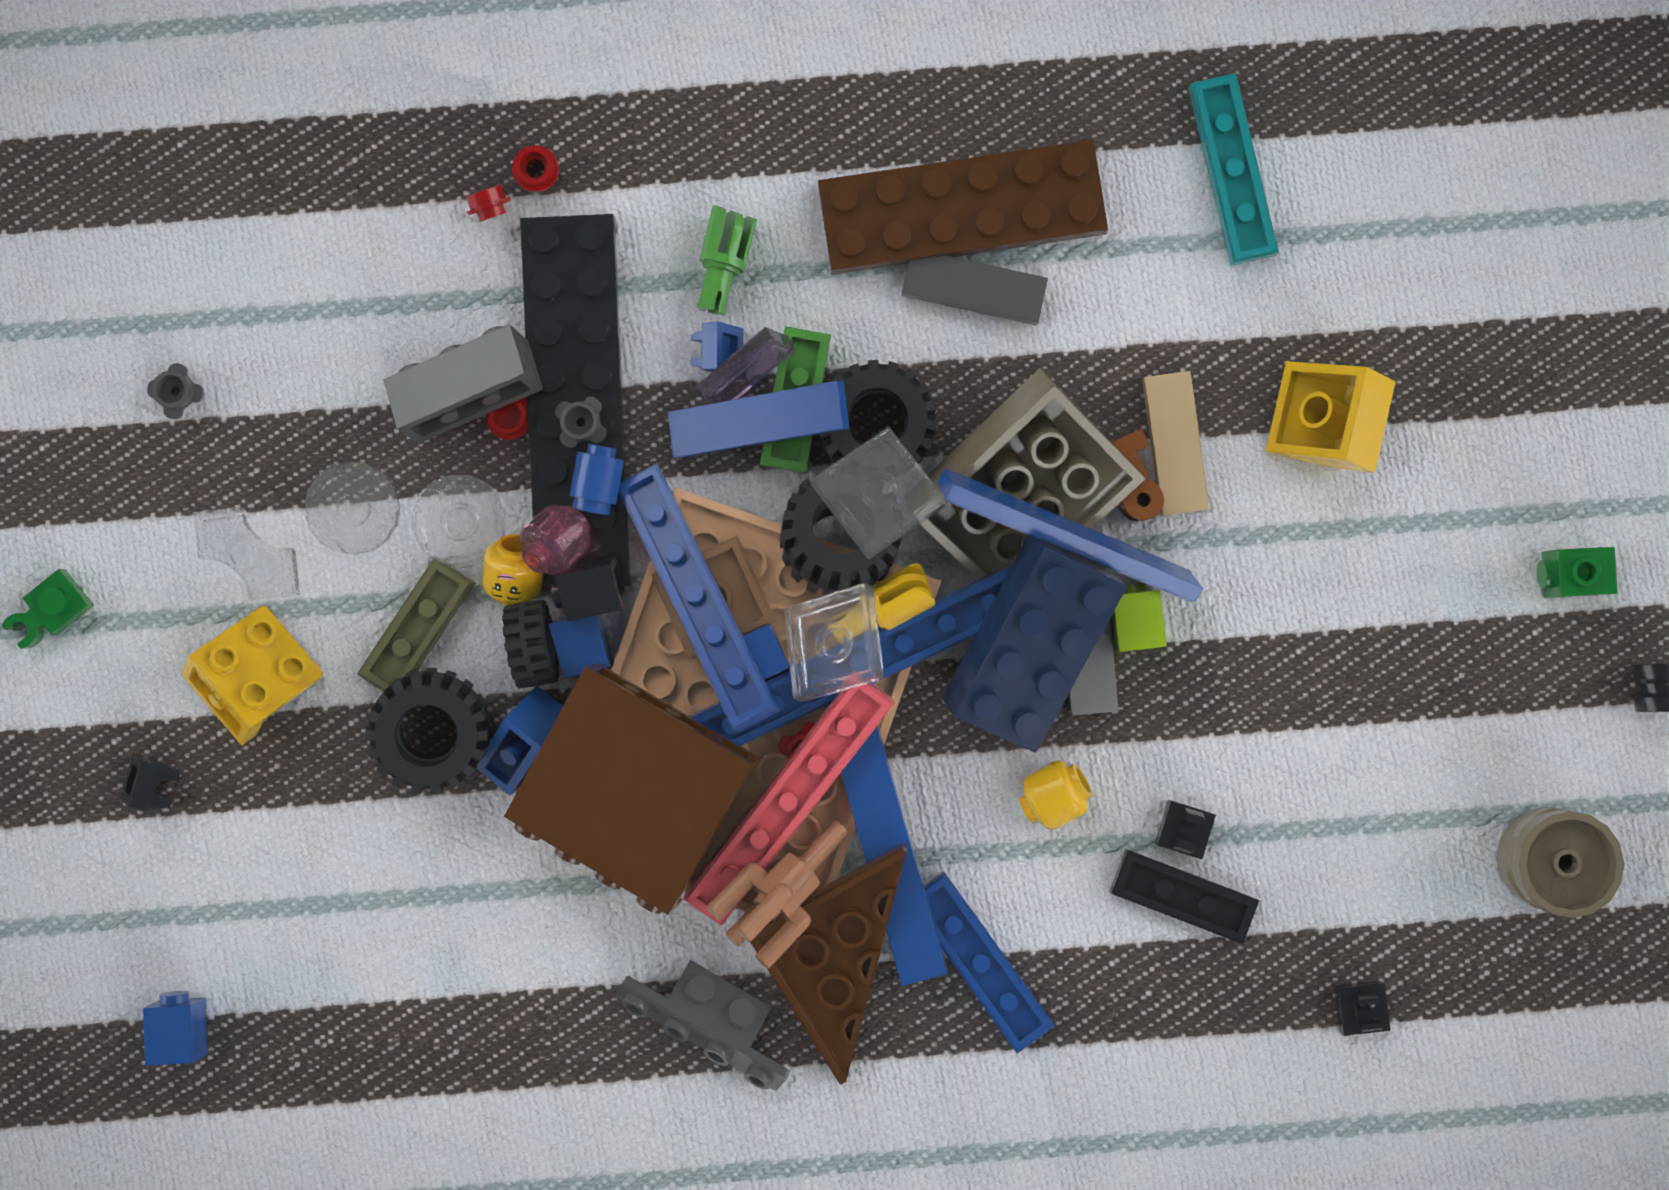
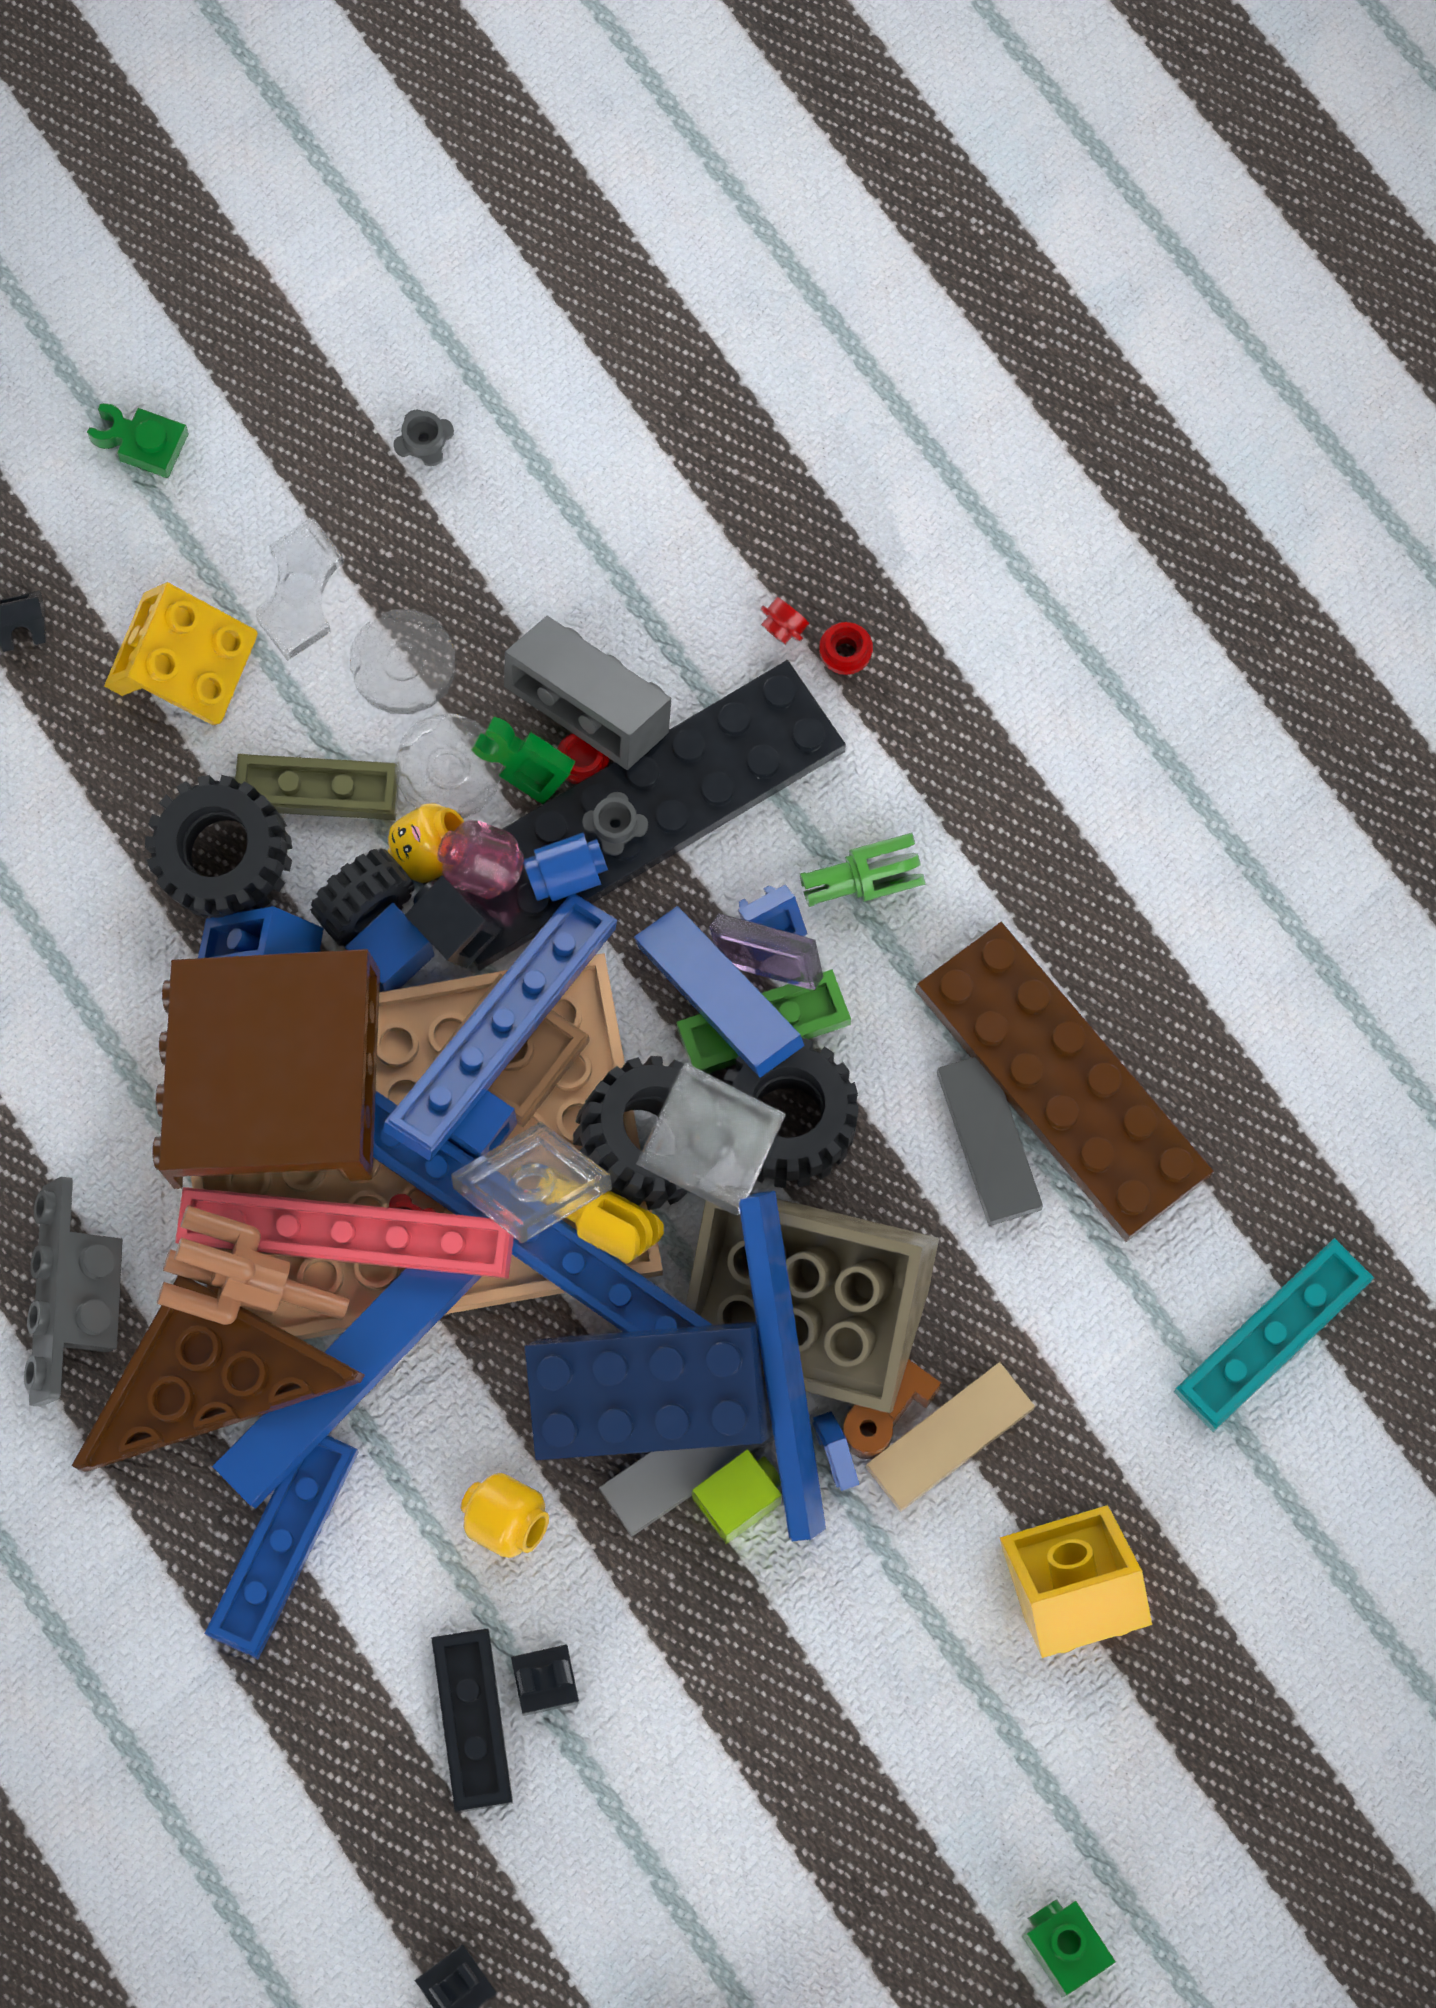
camera: 60 degrees right, 15 degrees down
(494, 461) = (526, 763): none -> green plate
(1140, 530) = (836, 1449): none -> tile

